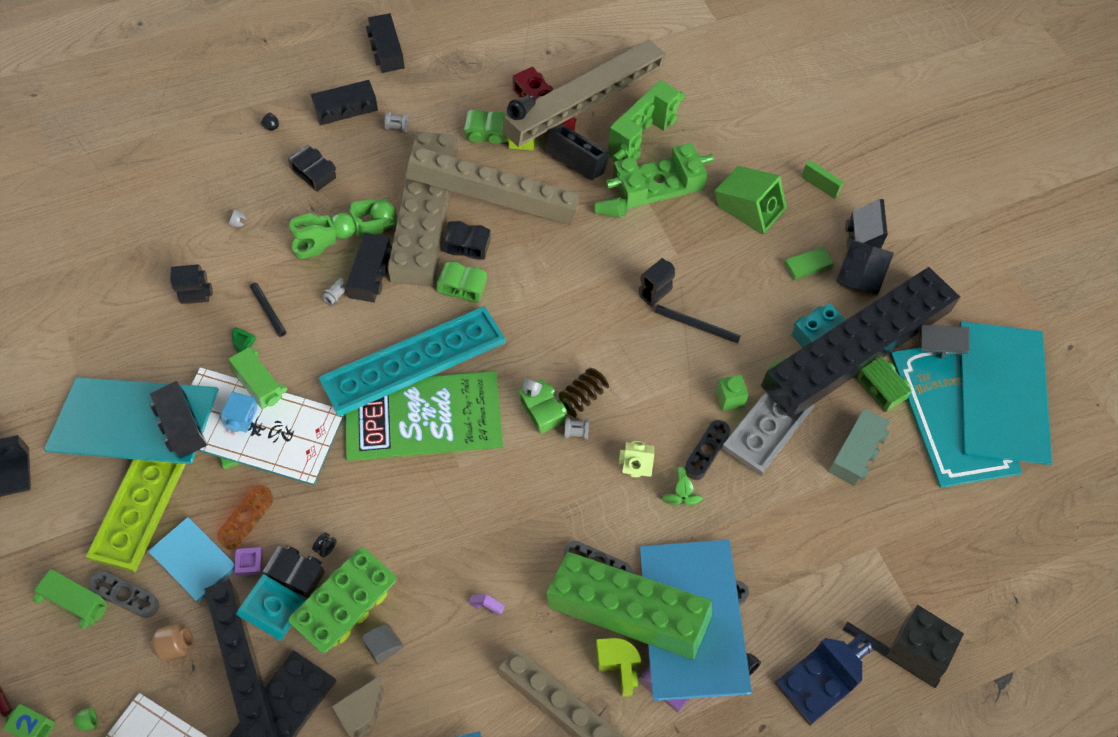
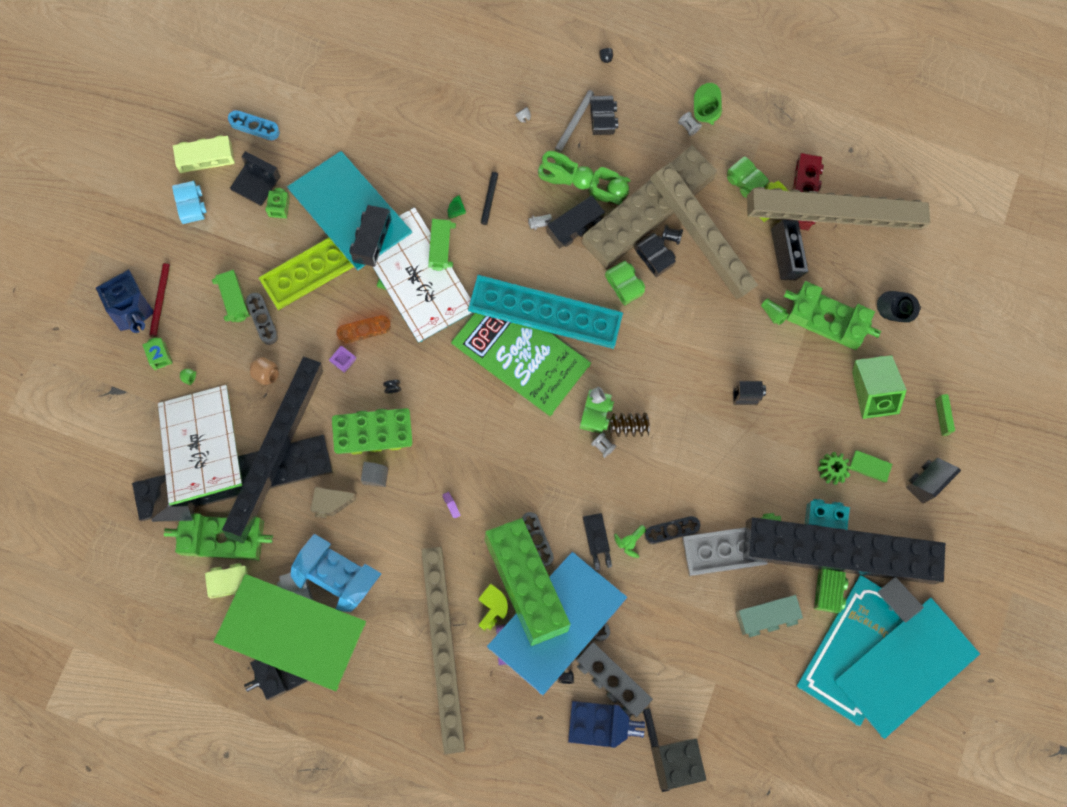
camera: 40 degrees right, 15 degrees up
(47, 472) = (280, 208): none -> bright green brick
(190, 284) = (454, 143): black brick -> none
(192, 559) = (314, 329): medium azure tile -> none
(239, 412) = (410, 259): dark azure brick -> none
(270, 607) = (330, 399): teal plate -> none
(289, 188) = (566, 135): none -> light grey bar
(294, 571) = (362, 388): black brick -> none
(344, 102) = (668, 79): black brick -> none
(385, 43) = (738, 51): black brick -> none
(397, 94) = (708, 103): none -> bright green piece
(466, 213) = (672, 234): none -> black bush
(520, 107) = (769, 191): black cone -> none
(637, 459) = (620, 498): yellowish green brick -> none
(652, 515) = (597, 539): none -> black hinge
(656, 108) = (882, 262): bright green brick -> none
(705, 127) = (898, 306): none -> black piece
(723, 333) = (750, 442): black bar -> none
(731, 393) = (723, 508): bright green brick -> none
(784, 286) = (828, 462): none -> bright green gear
(831, 618) = (610, 668): none -> dark grey brick
(864, 266) = (901, 503): black slope -> none

